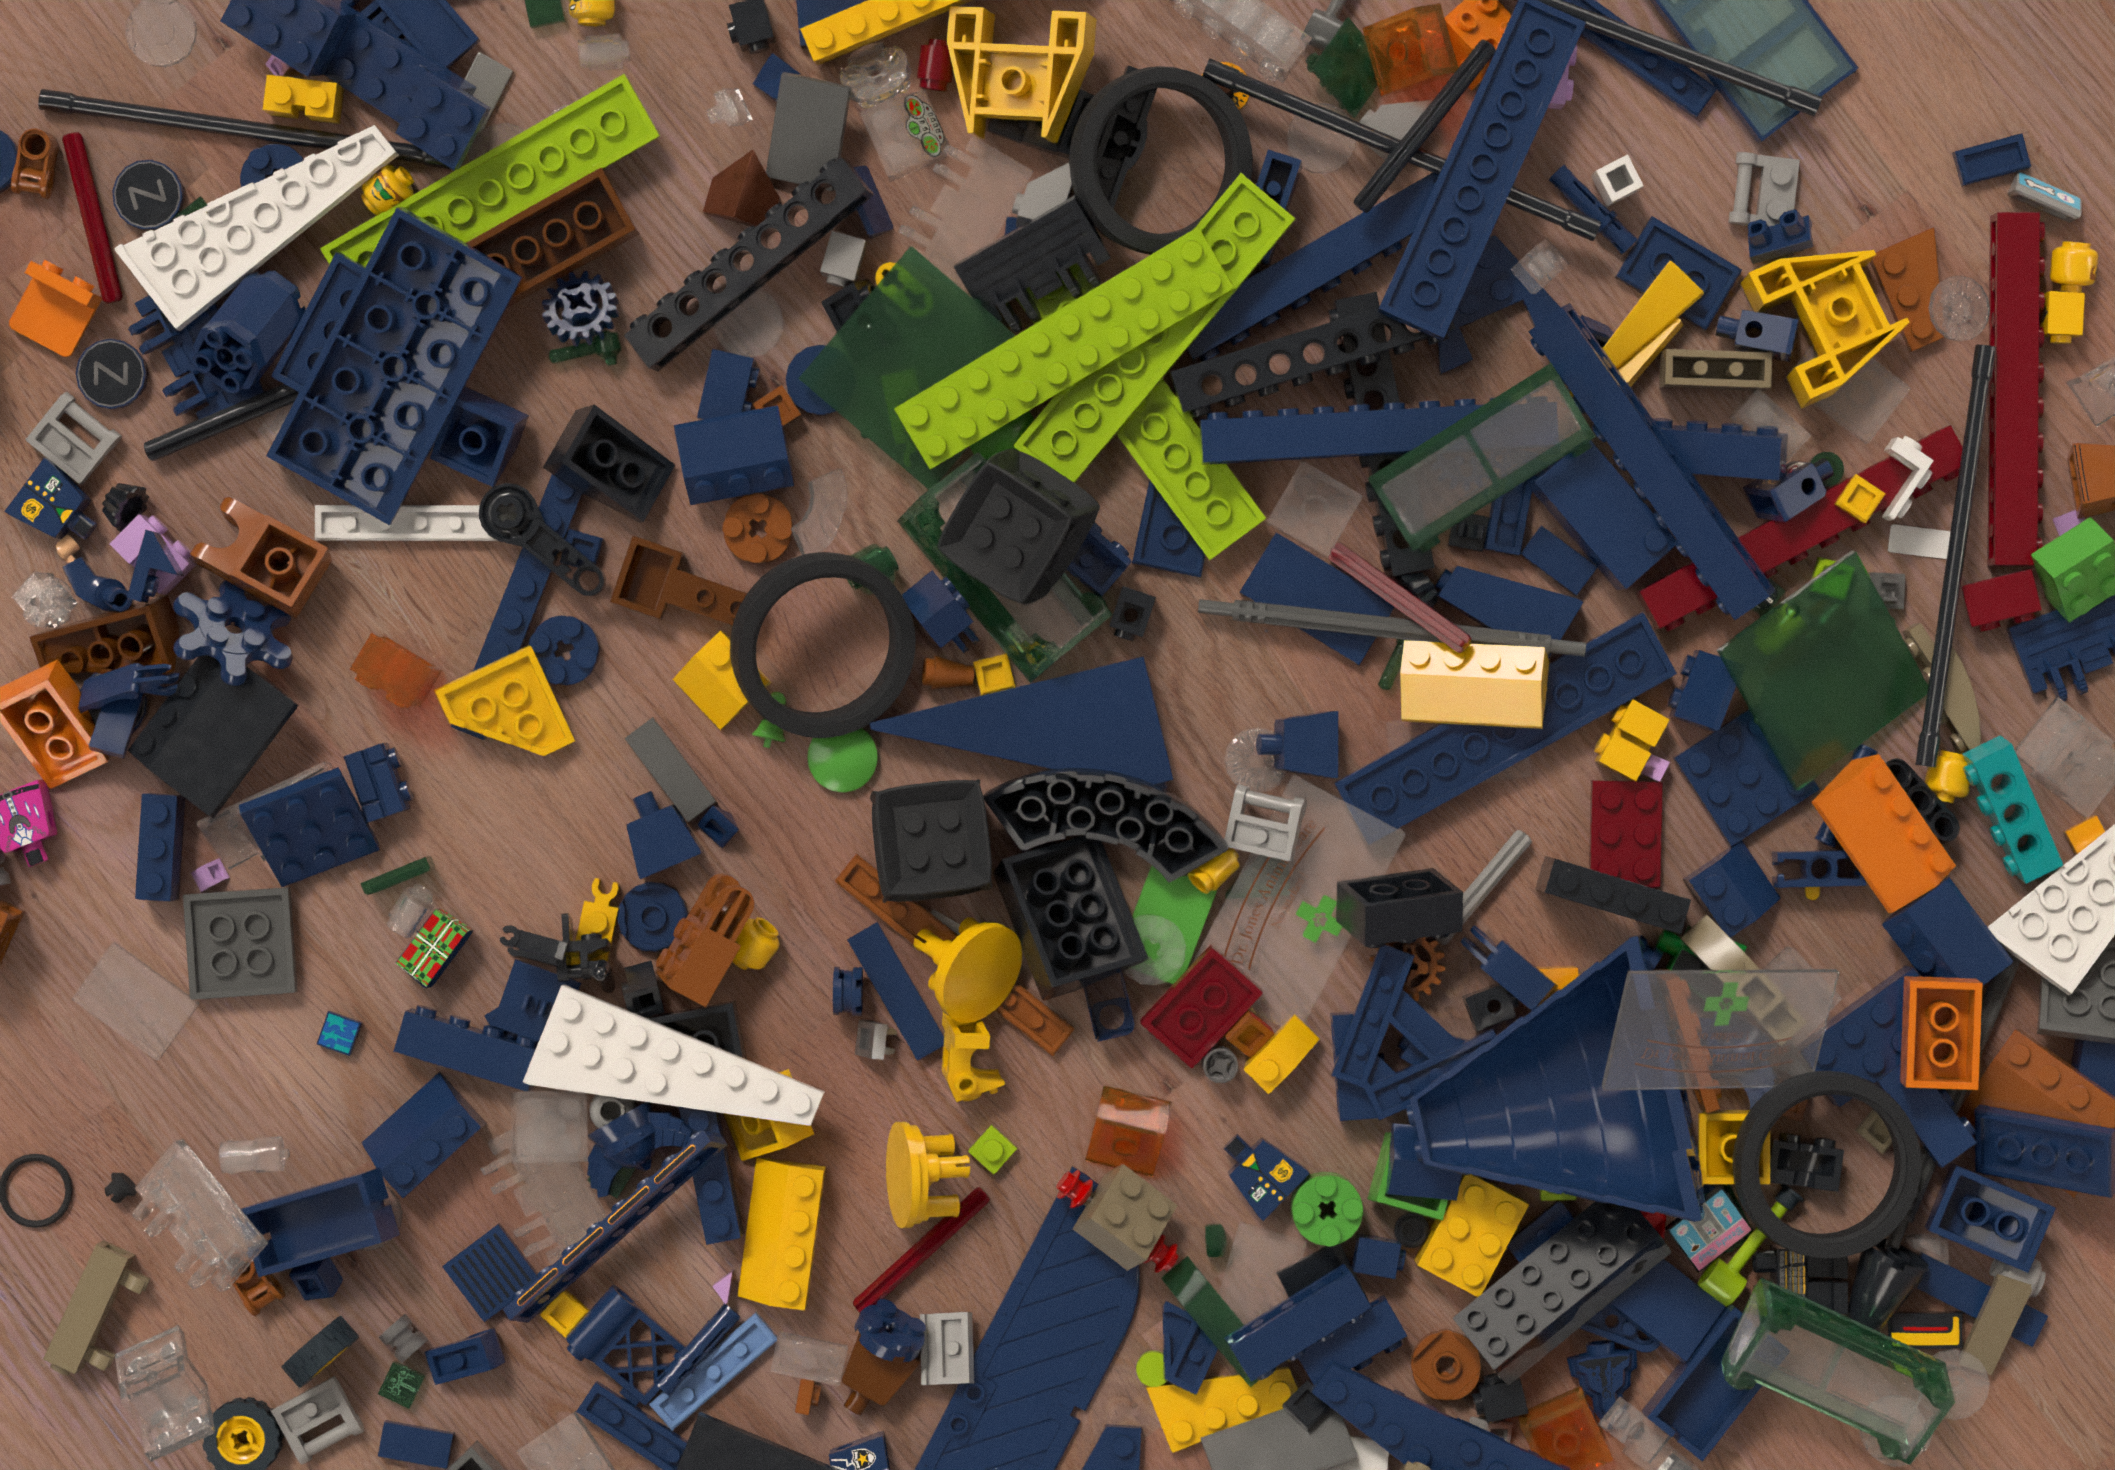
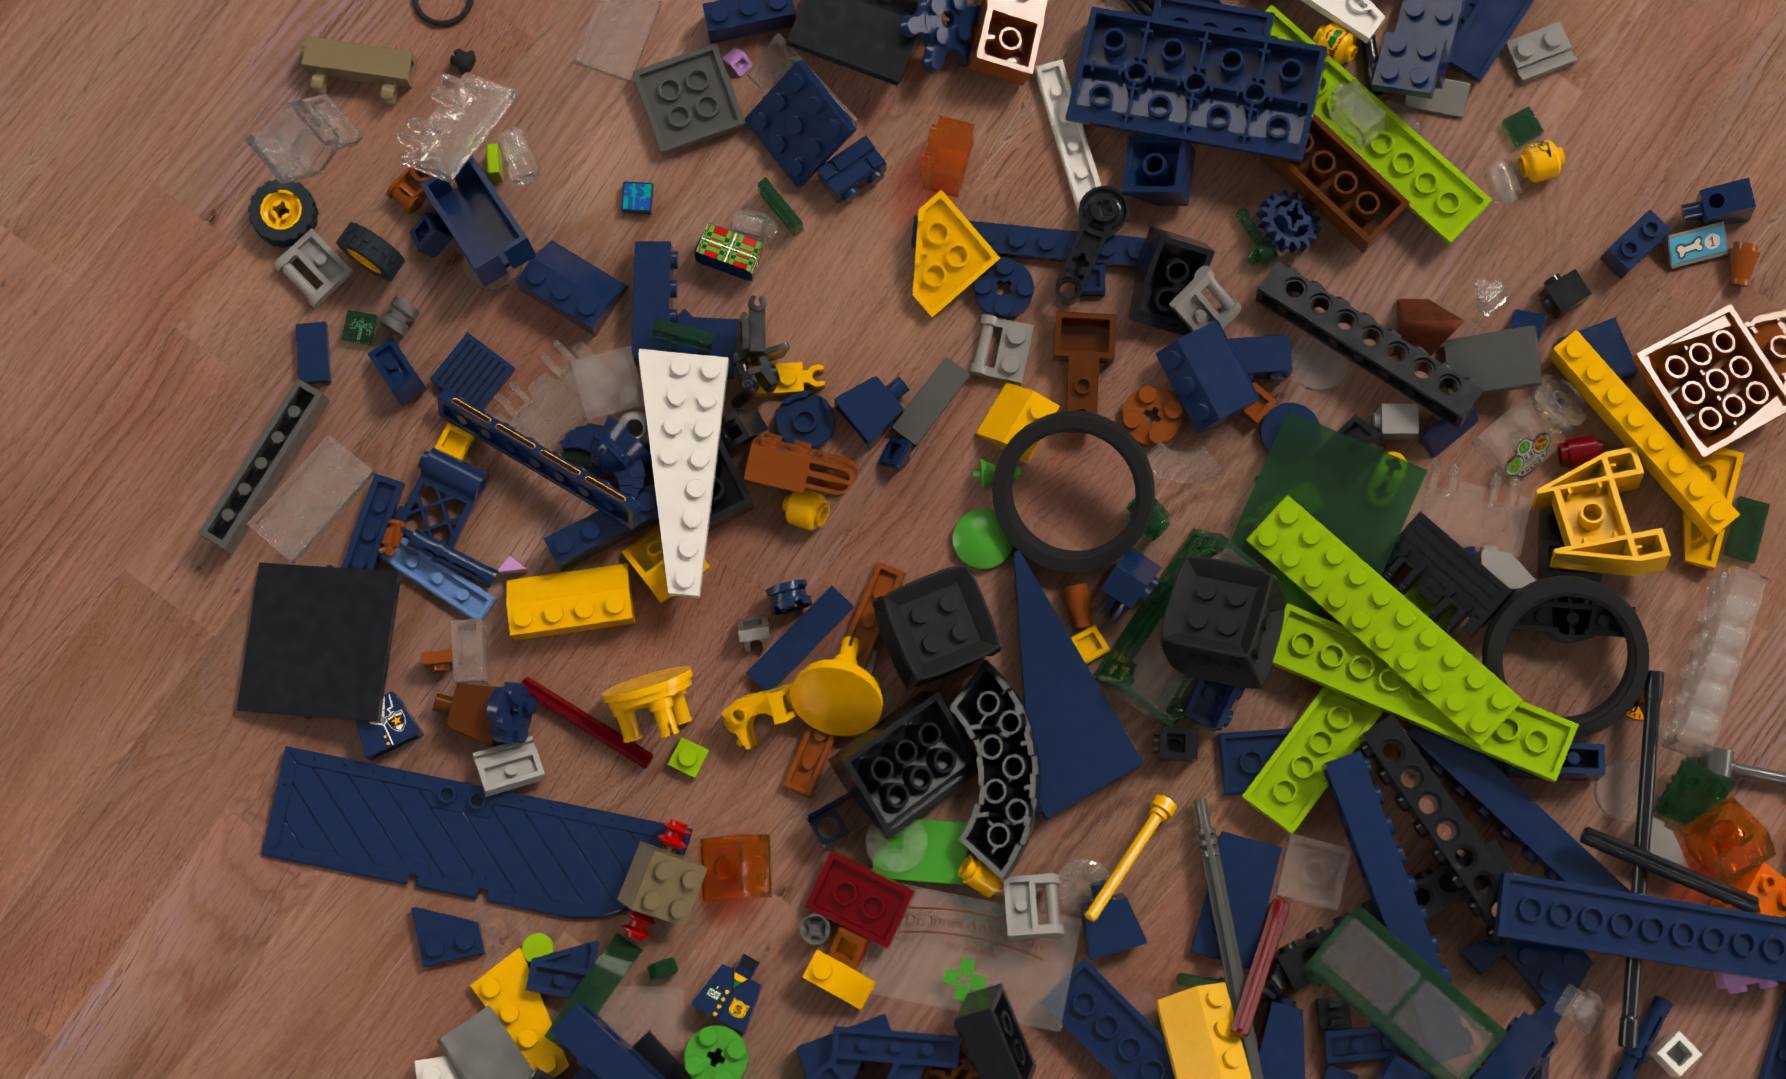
camera: 80 degrees right, 10 degrees down
(252, 1184) = (494, 162): none -> lime tile
(482, 197) = (1356, 113): none -> clear hips
(520, 1027) = (683, 335): none -> clear green tile
(638, 662) = (1011, 353): none -> light grey plate
(654, 443) = (1196, 309): none -> light grey plate
(655, 1410) = (392, 537): none -> dark orange piece
(1198, 651) = (1160, 810): none -> yellow piece

